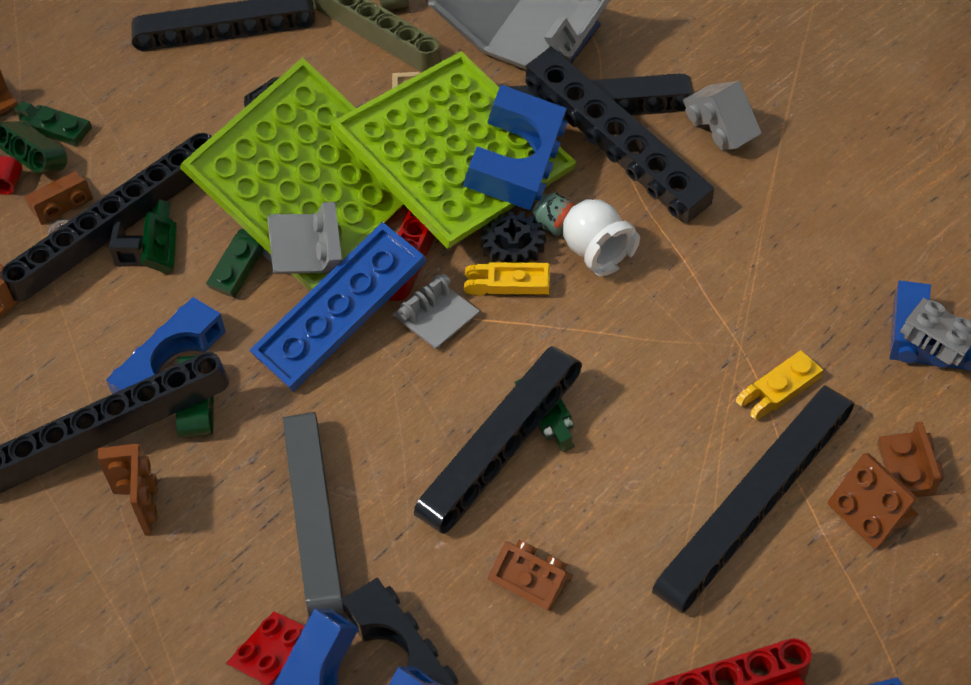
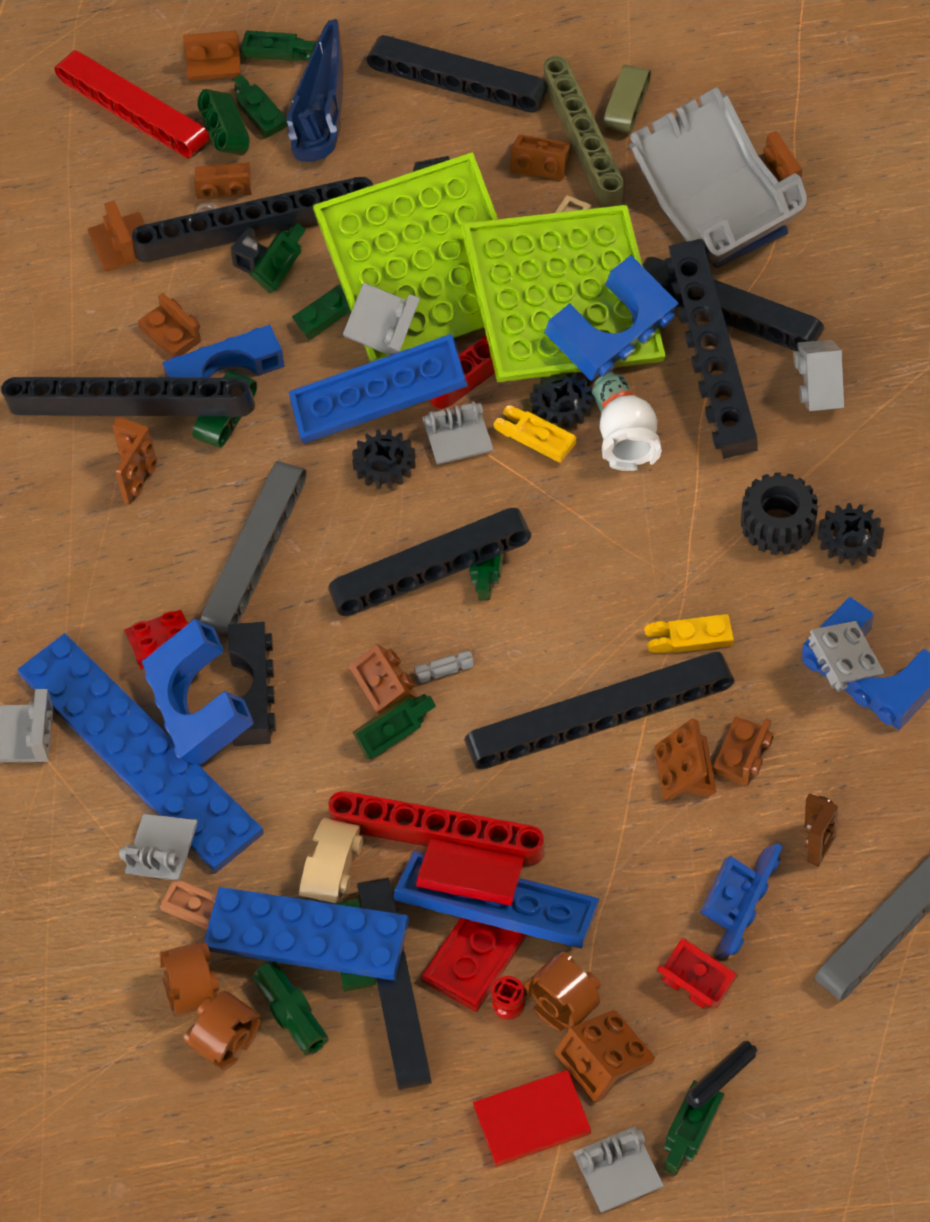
camera: 30 degrees right, 5 degrees up
(39, 66) = (276, 46): none -> dark green hinge
(90, 346) = (171, 327): none -> dark orange bracket
(109, 93) = (318, 99): none -> dark blue piece
(345, 55) = (540, 156): none -> dark orange bracket
(384, 367) = (383, 459): none -> black gear
(572, 614) = (392, 725): none -> dark green hinge
(578, 531) = (443, 666): none -> light grey axle
(774, 260) = (783, 494): none -> black tyre
(864, 231) = (850, 534): none -> black gear

